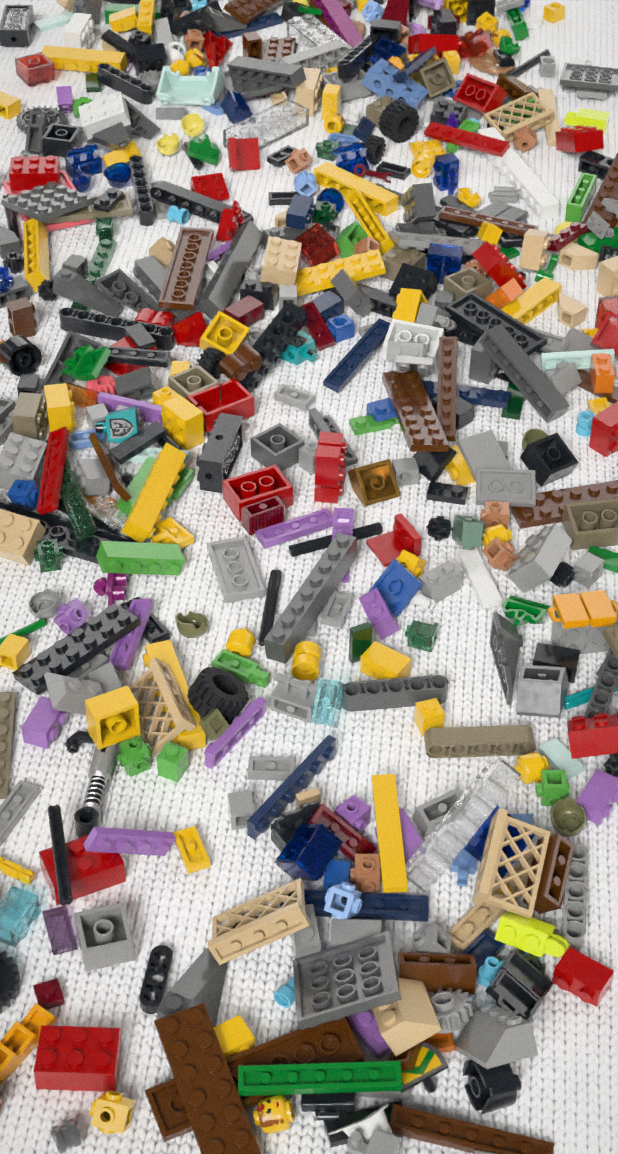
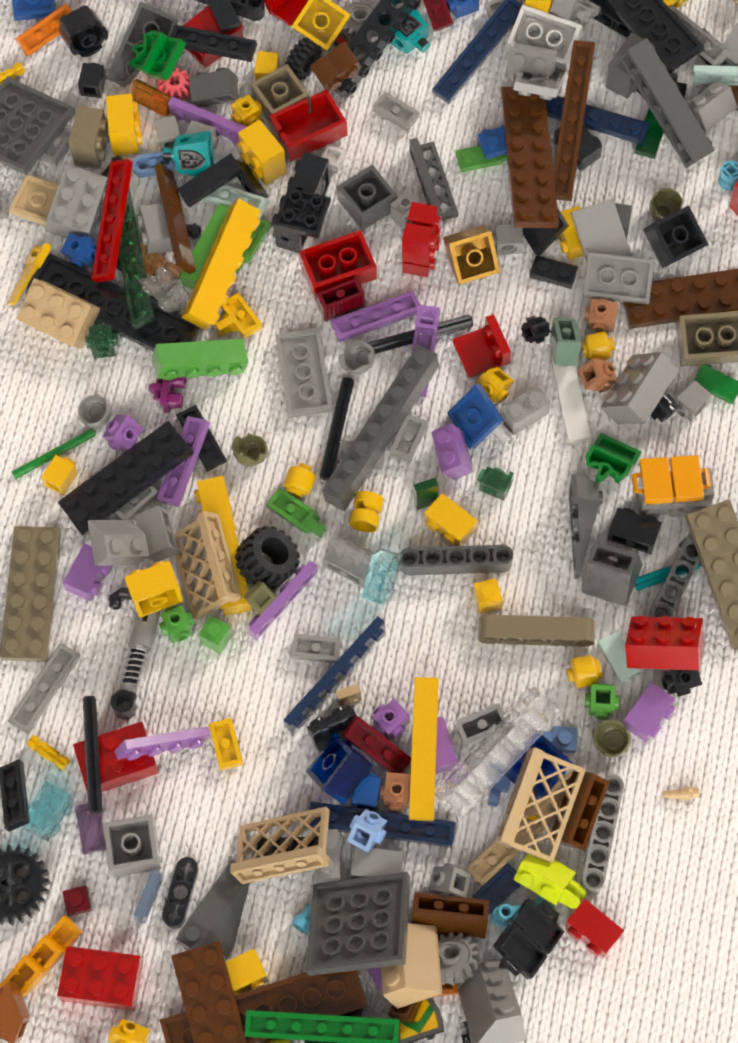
camera: 10 degrees right, 25 degrees up
(123, 982) = (148, 896): none -> sand blue tile
(224, 449) = (303, 212): none -> black tile
(240, 808) = (279, 699): light grey brick -> none
(283, 554) = (357, 357): none -> light grey hair

